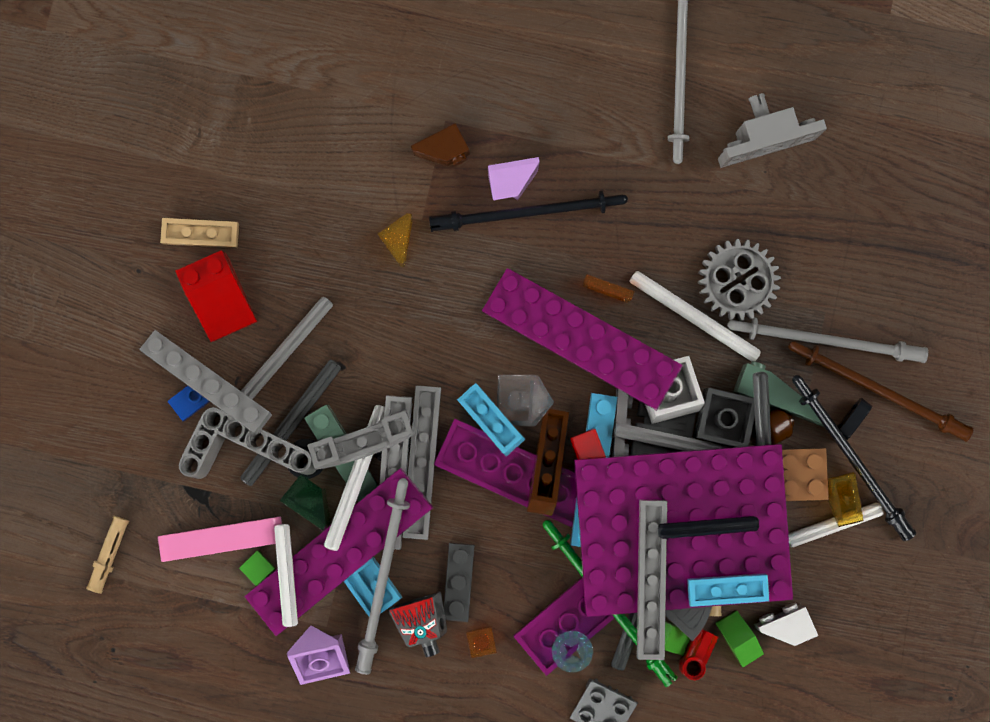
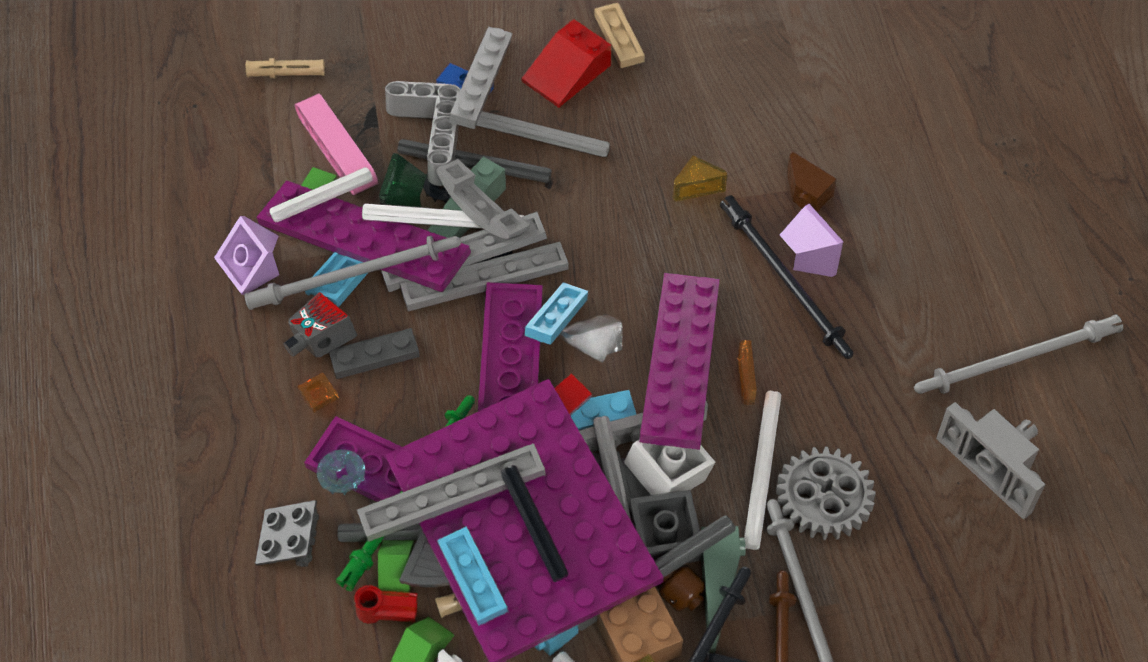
camera: 70 degrees right, 30 degrees down
(548, 463) = (511, 373): reddish brown slope -> none

